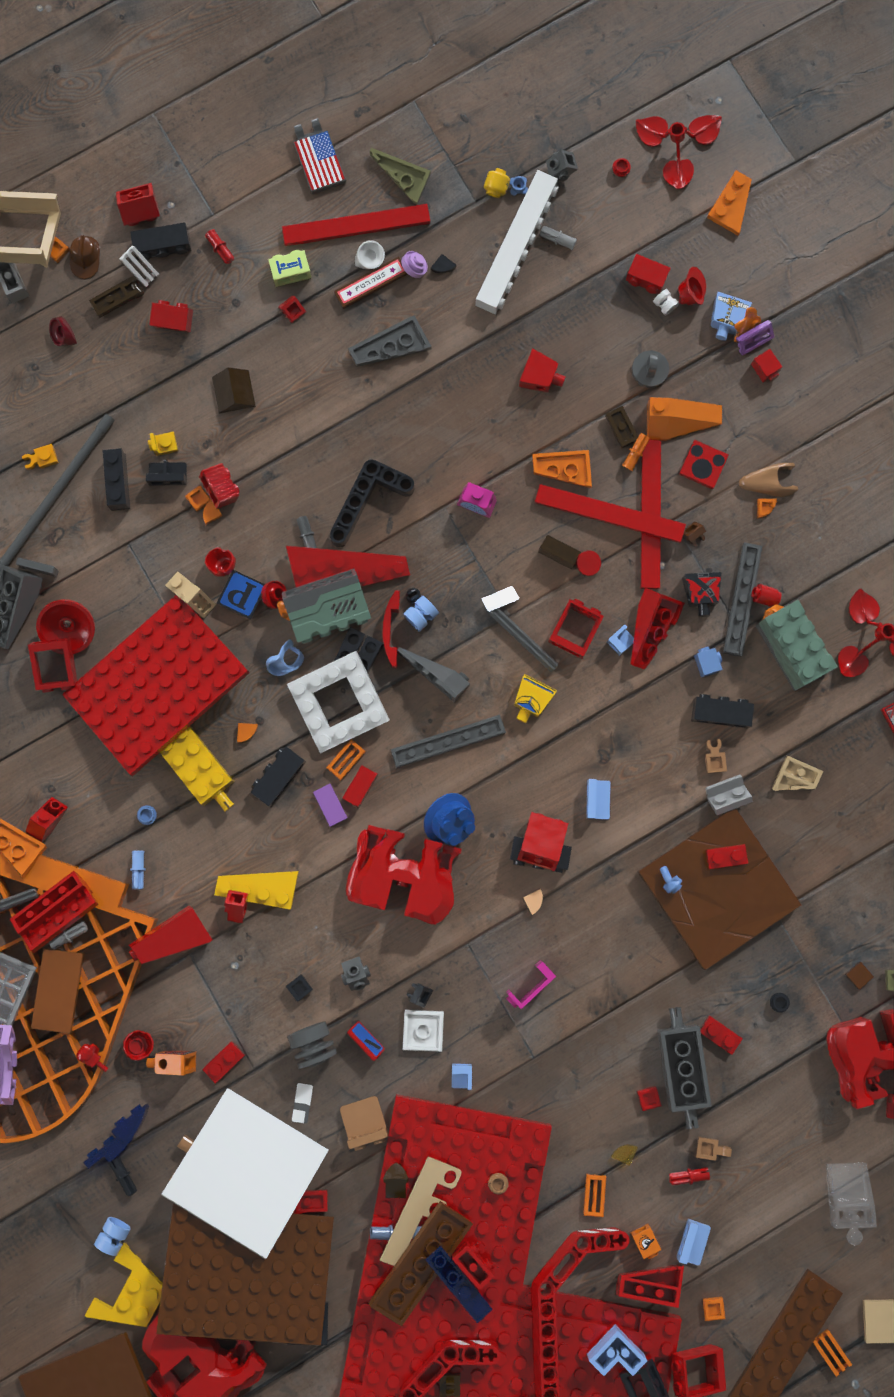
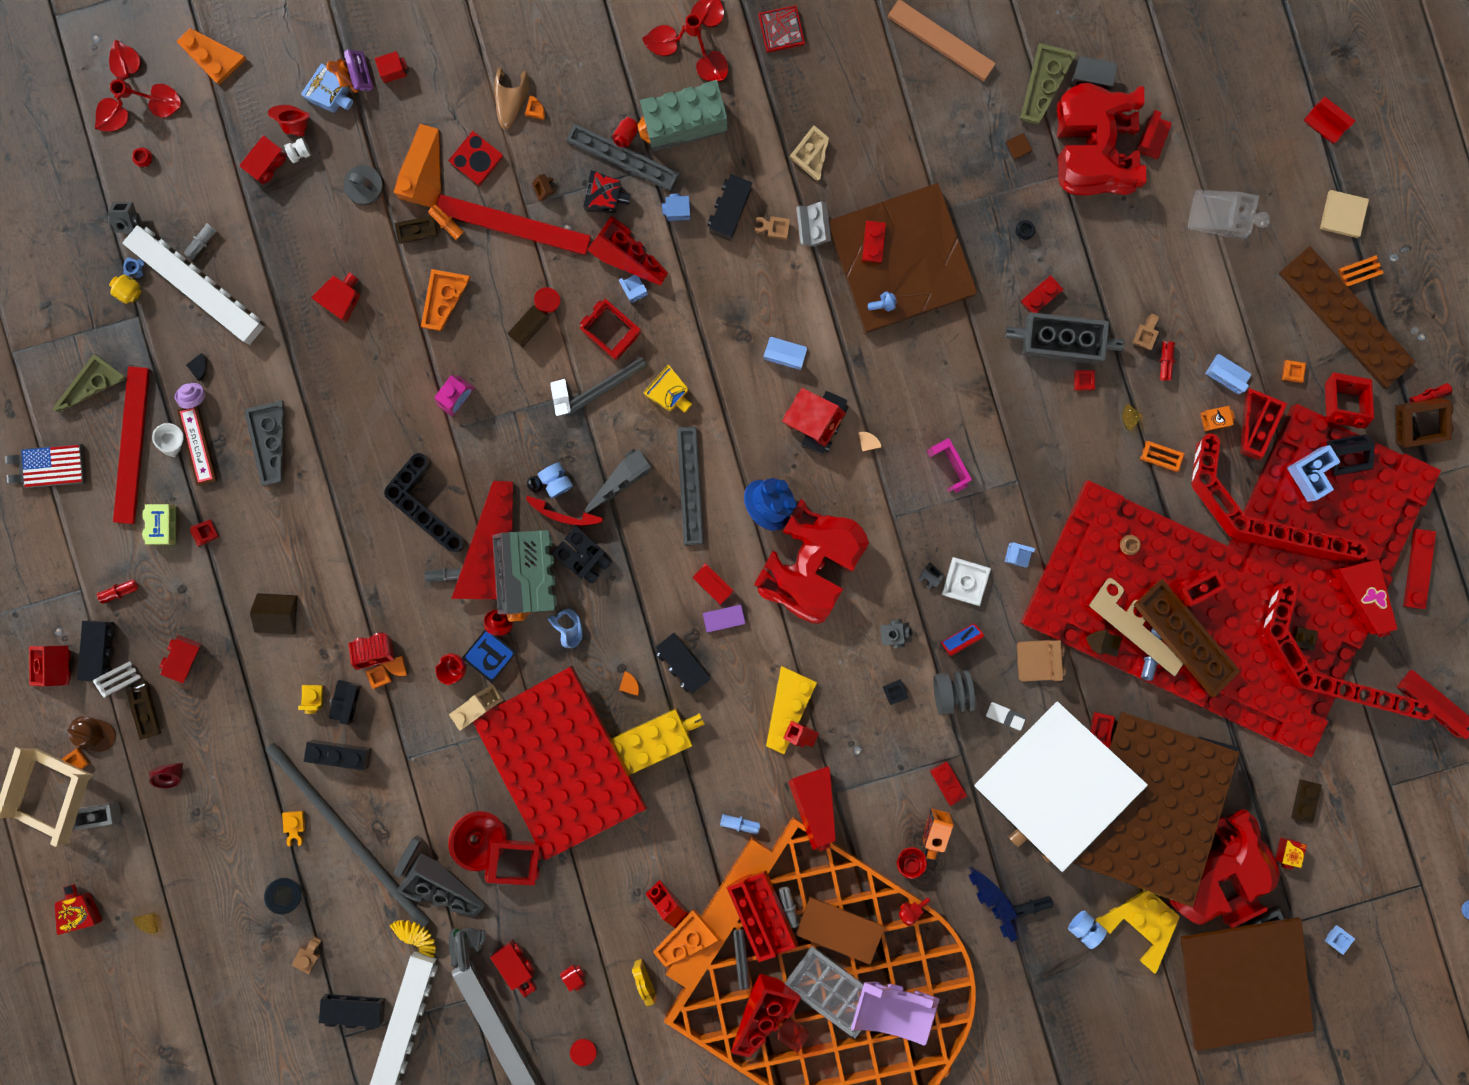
camera: 75 degrees left, 5 degrees up
(146, 815) = (687, 802): medium blue plate -> none
(303, 694) = (640, 552): white plate -> none
(340, 754) = (673, 578): orange tile -> none
(458, 1284) = (1215, 606): clear blue slope -> none
(610, 513) = (502, 265): red tile -> none

